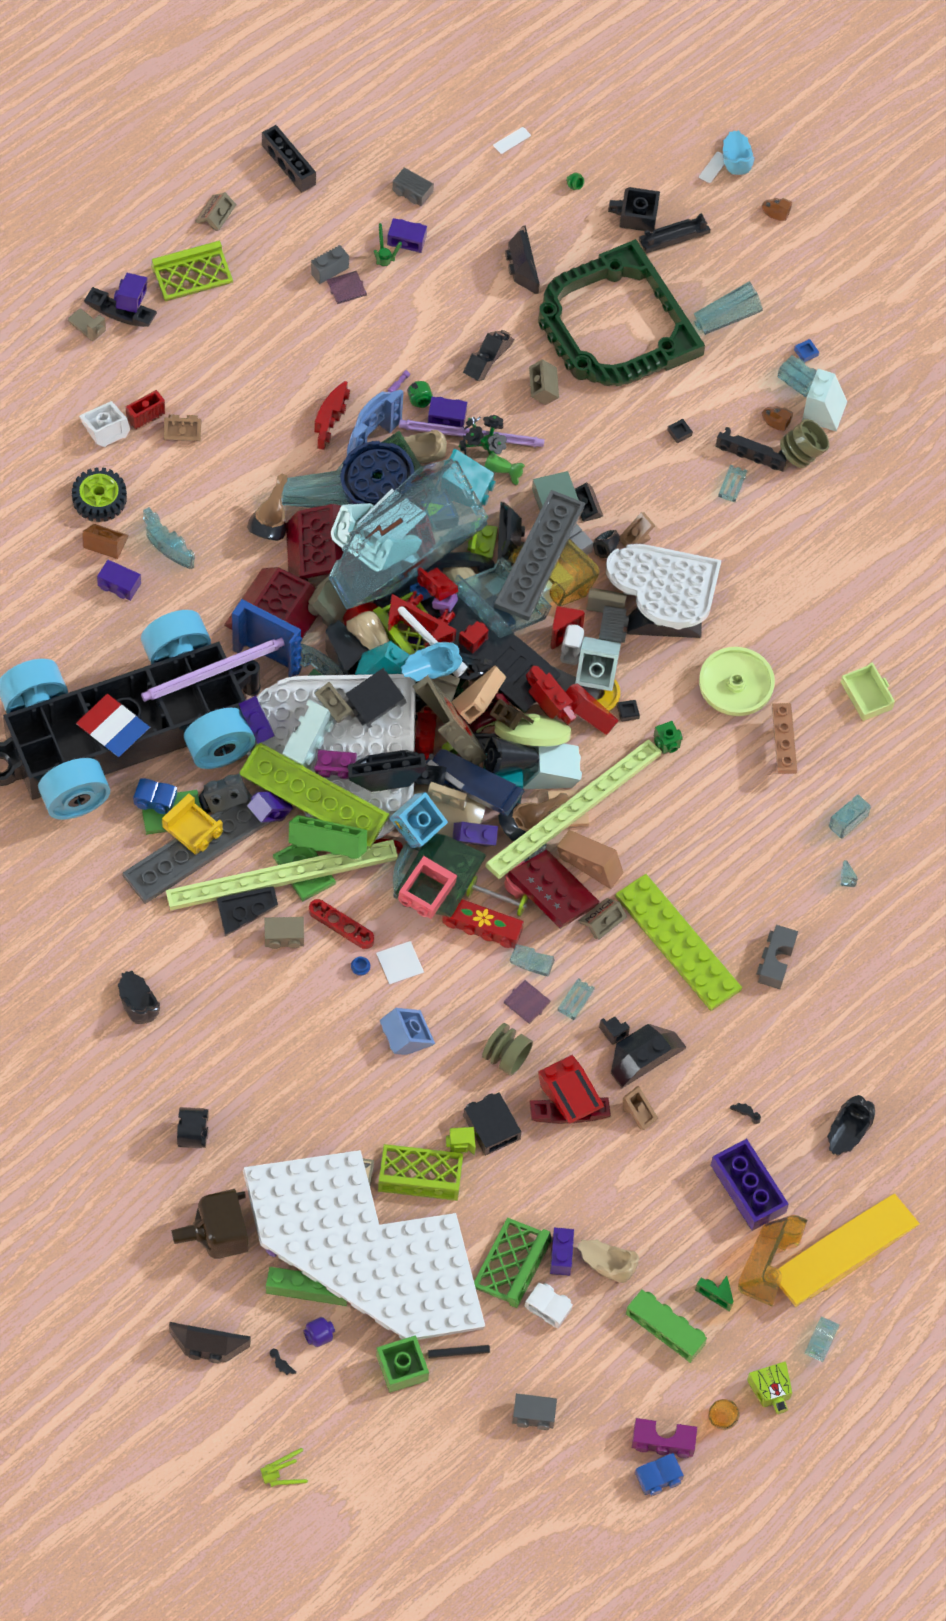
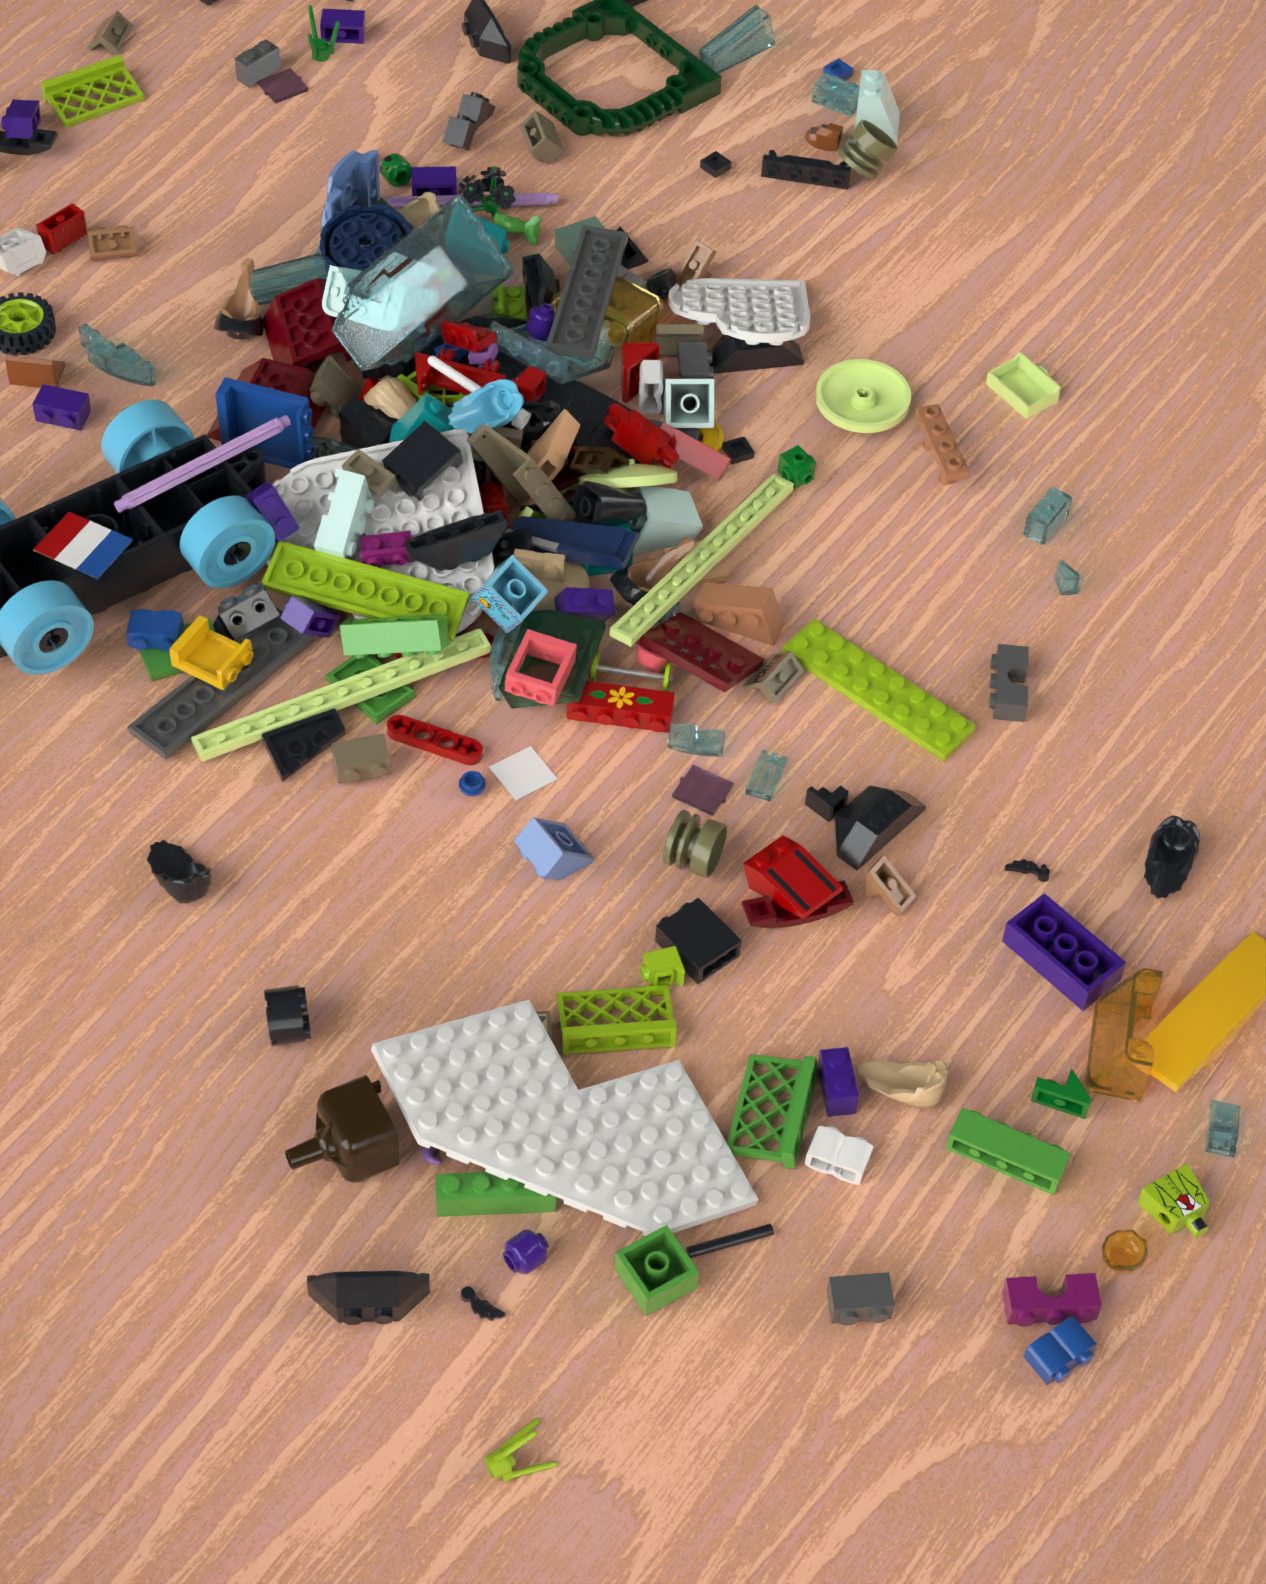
camera: 10 degrees left, 10 degrees down
(330, 412) = (292, 203): red slope -> none
(498, 573) = (540, 321): none -> dark purple head
(737, 472) = (794, 196): clear light blue tile -> none

